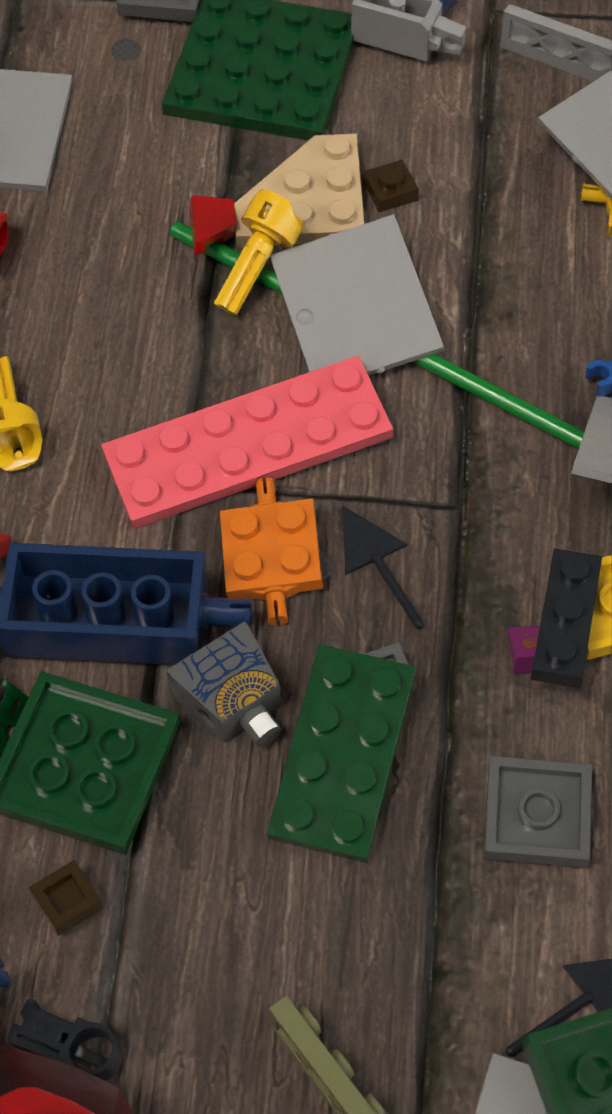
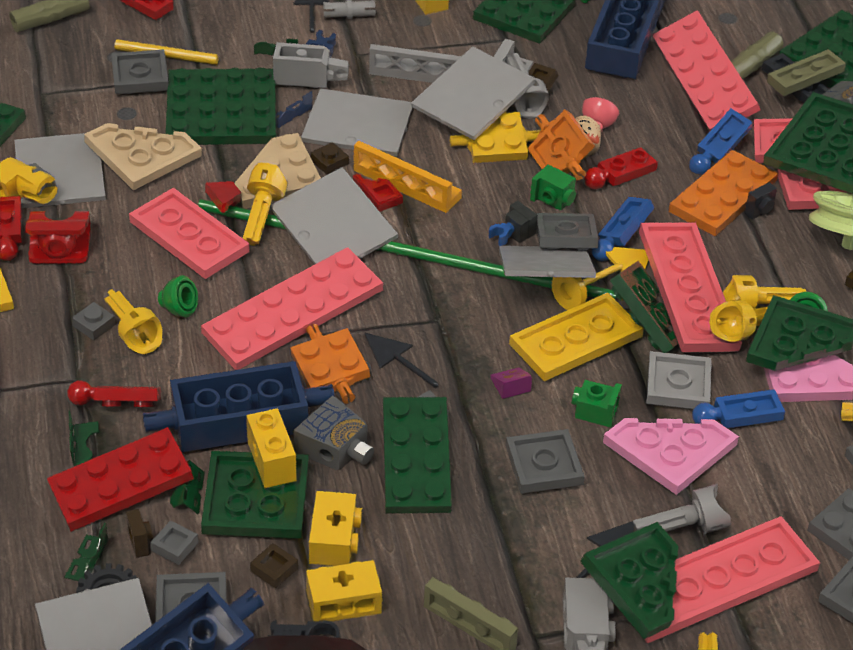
camera: 20 degrees left, 15 degrees down
(88, 388) = (179, 296): none -> green brick
(118, 698) = (271, 448): none -> yellow brick
(119, 124) = (141, 153): none -> tan plate
(141, 277) = (189, 233): none -> coral plate
(174, 828) = (332, 528): none -> yellow brick
(174, 989) = (344, 591): none -> yellow brick
(352, 99) = (290, 112): none -> dark blue piece
(444, 260) = (380, 192): none -> red tile
(454, 130) = (354, 117): none -> light grey piece
(492, 245) = (406, 177): none -> light orange fence
(566, 618) = (526, 356): black plate -> none

